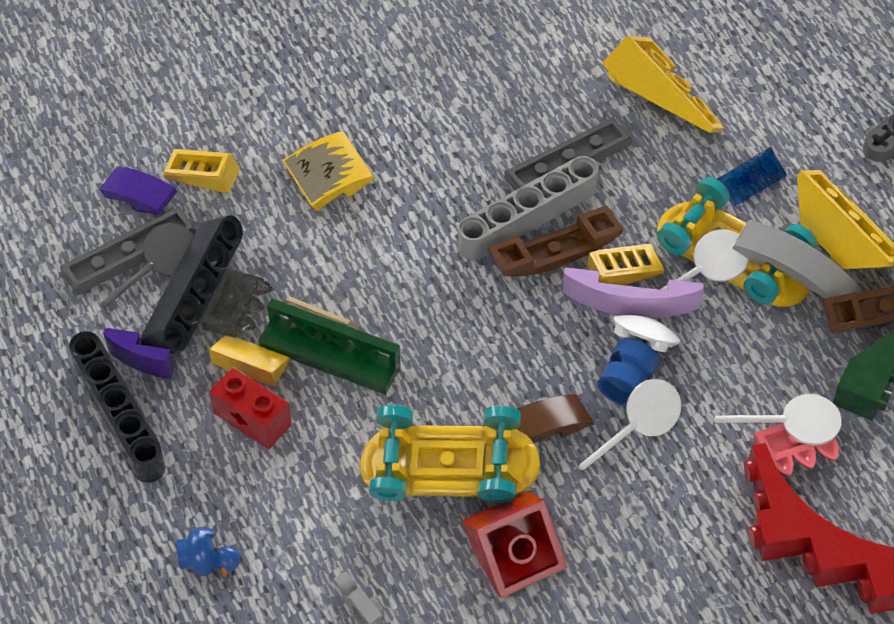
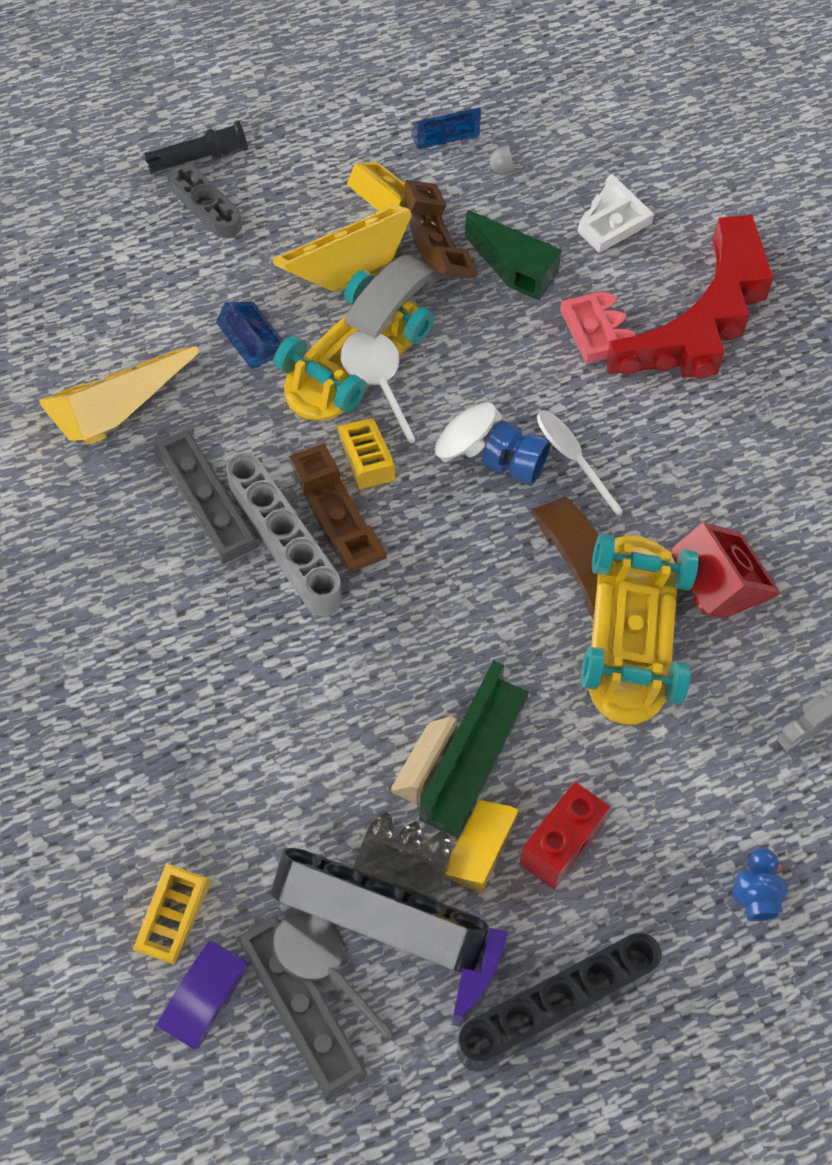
camera: 90 degrees left, 5 degrees up
(328, 169) = (196, 751): slope -> none
(628, 300) = (405, 478): lavender slope -> none
(805, 418) = (573, 310): white piece -> none

